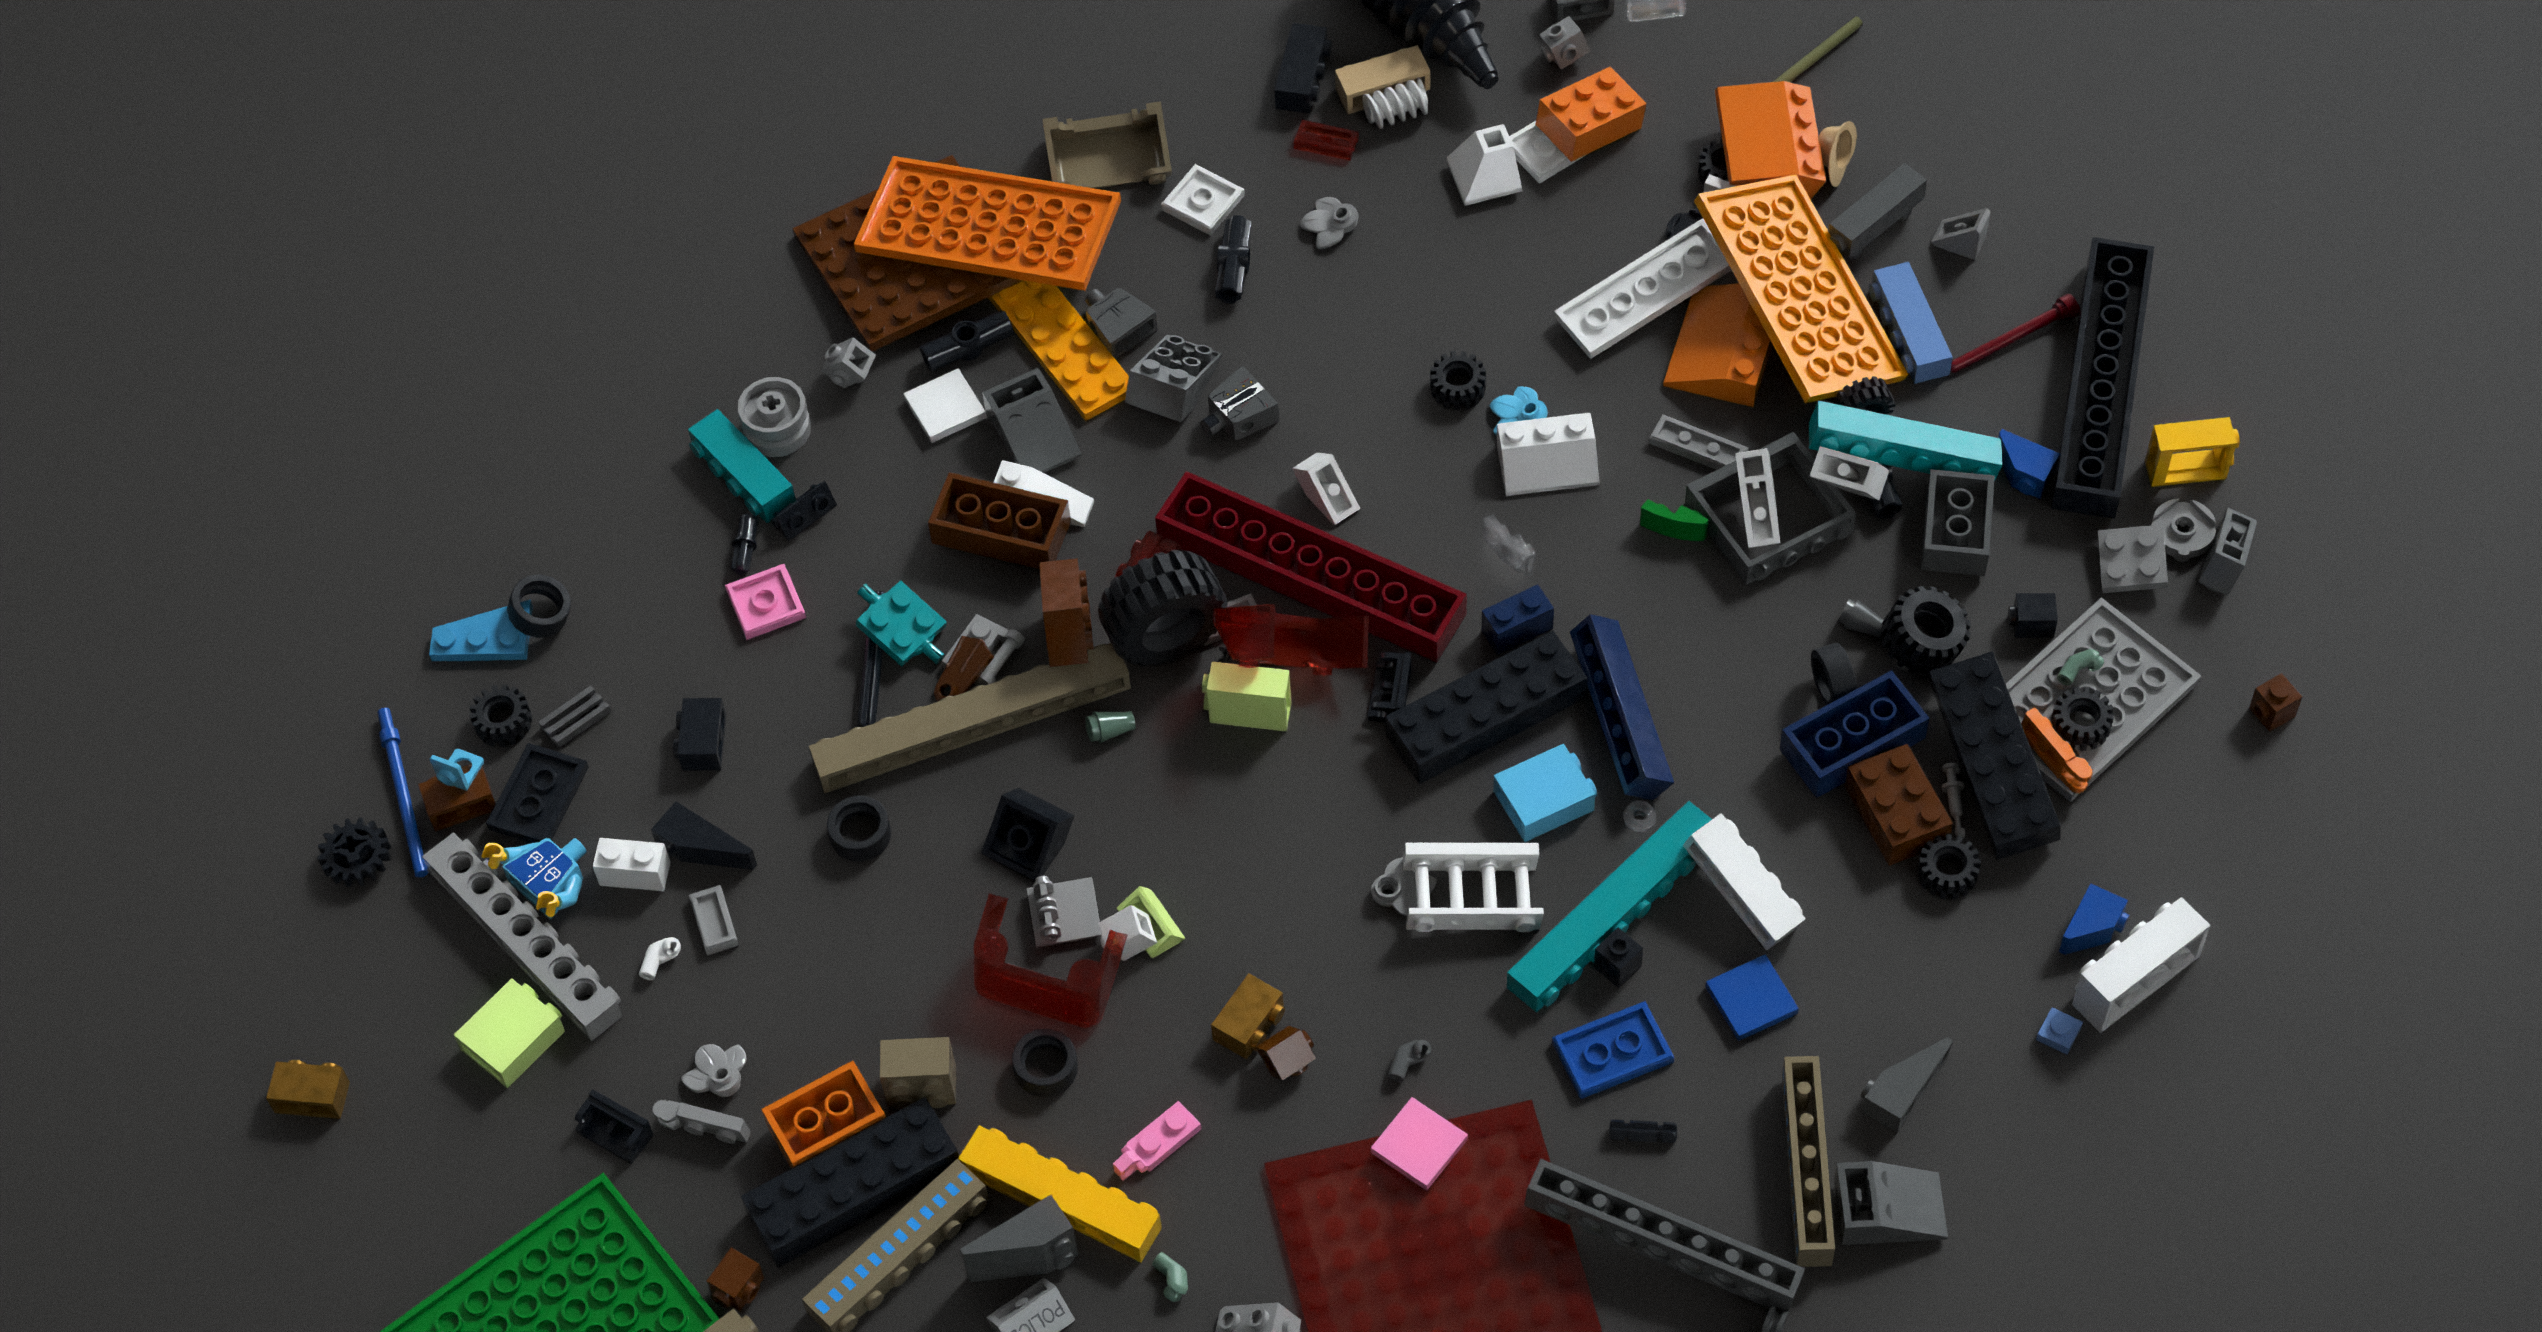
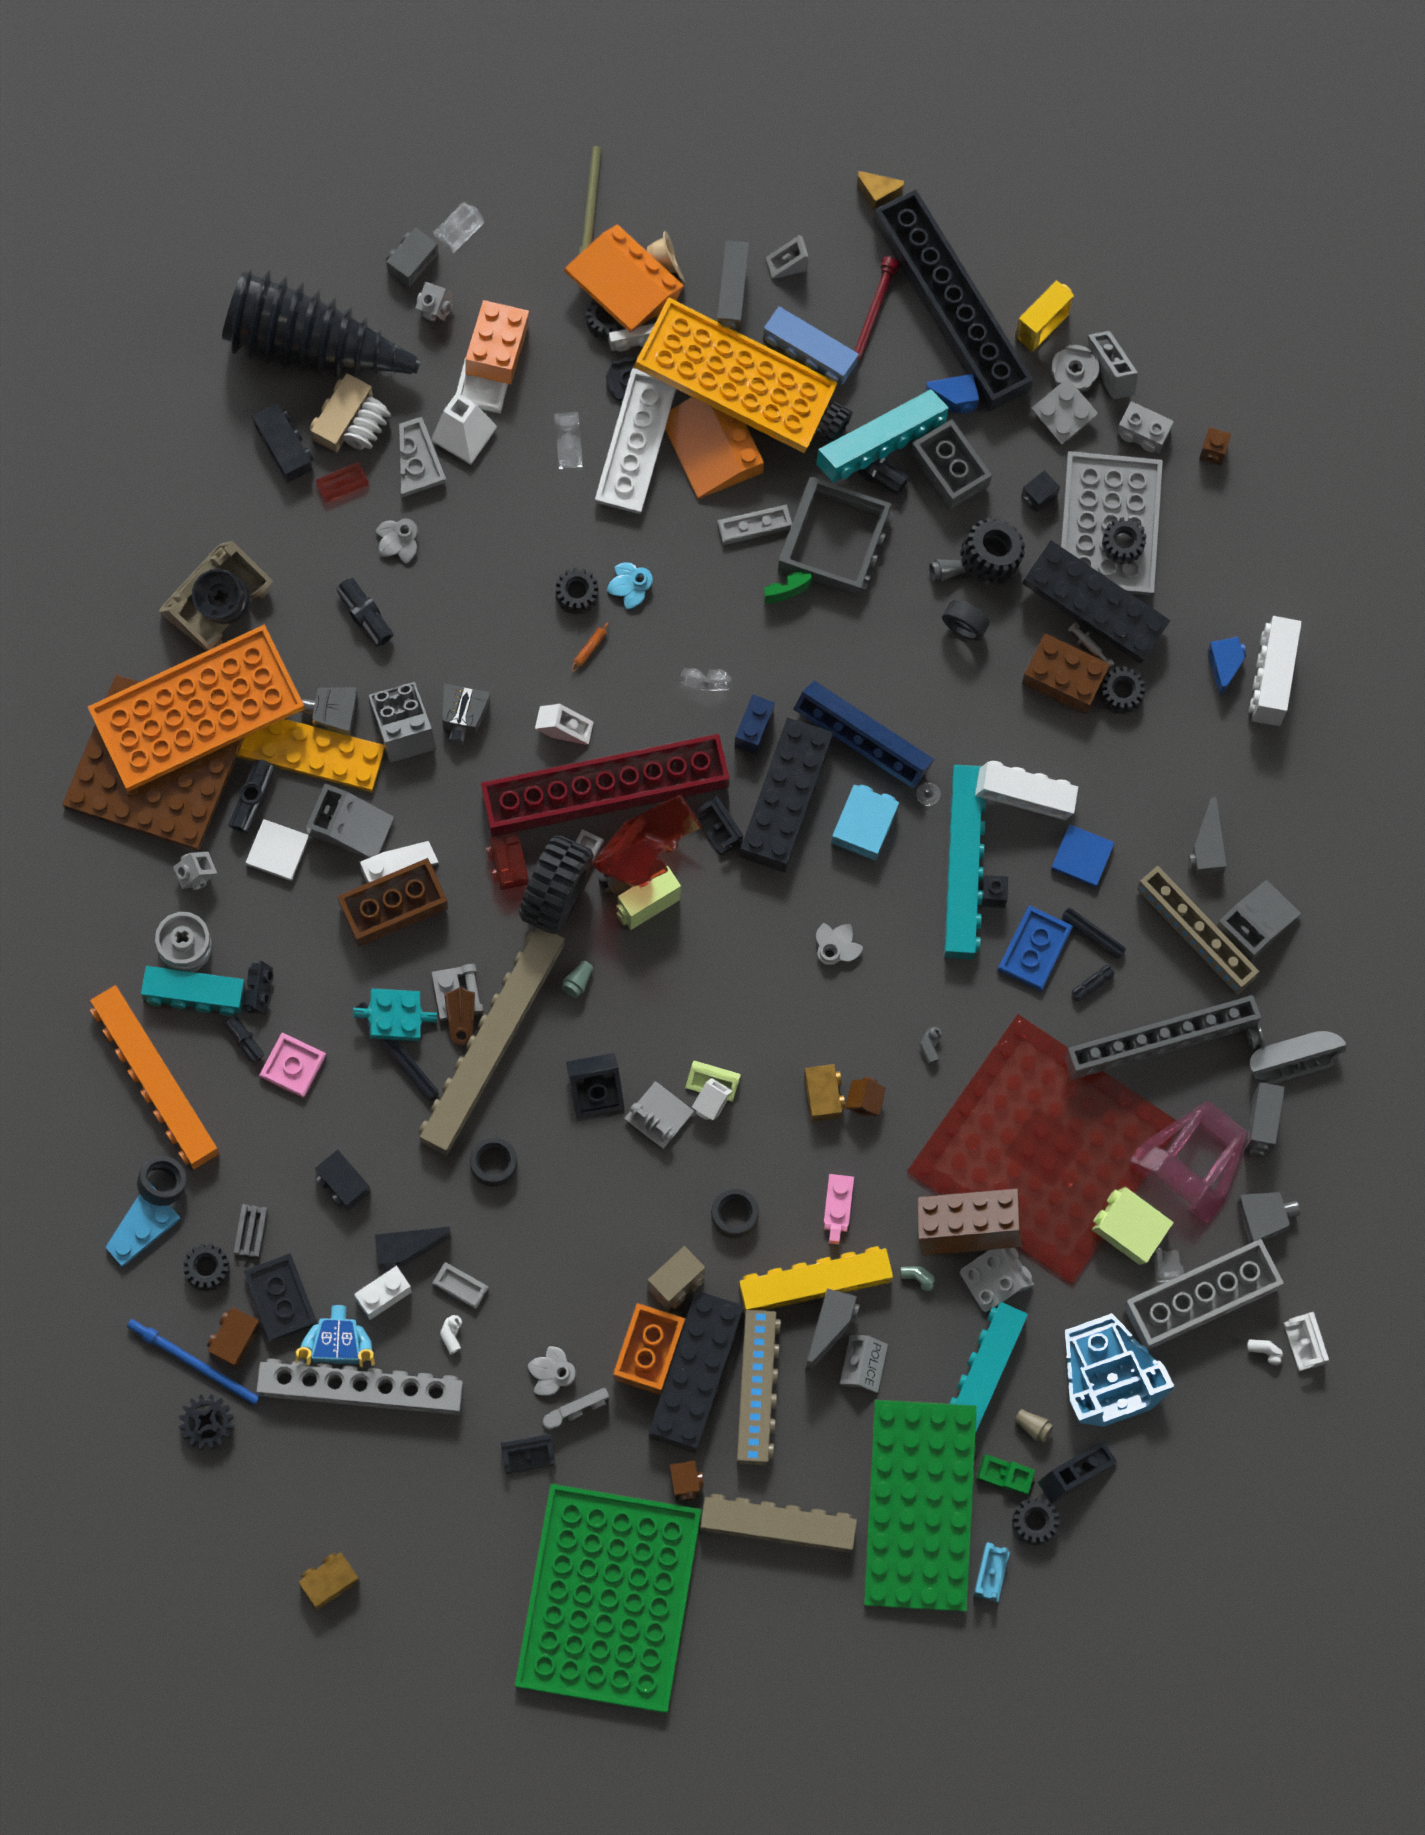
camera: 50 degrees left, 15 degrees up
(451, 773) = (227, 1330): medium azure bracket -> none
(510, 1032) = (412, 1449): yellowish green brick -> none
(628, 515) = (154, 1077): none -> orange brick
(1066, 612) = (497, 932): reddish brown brick -> none
(1074, 1001) = (666, 1185): clear red windscreen -> none
(1107, 147) = (210, 589): none -> black wheel
(1203, 199) = (303, 583): white tile -> none
(1271, 1256) = (970, 1222): none -> brick
(1418, 166) = (418, 459): none -> light grey wing
(1419, 1143) = (984, 1090): bright pink tile -> none
(1422, 439) = (589, 647): none -> orange piece
(1472, 857) = (872, 891): white fence -> none
(1547, 454) = (676, 601): white slope -> none
(1579, 243) = (568, 440): none -> clear slope
(1691, 1082) = (1093, 933): none -> black axle
(1758, 497) = (831, 538): white slope -> none
(1850, 473) = (870, 482): white slope -> none
(1852, 730) = (1006, 648): dark blue brick -> none
(2056, 752) = (1128, 573): orange hinge -> none
(2059, 1031) = (1259, 743): medium blue plate -> none
(2088, 658) = (1091, 505): sand green arm -> none
(2121, 226) = (879, 189): none -> pearl gold slope
(2210, 633) = (1144, 427): none -> light grey brick

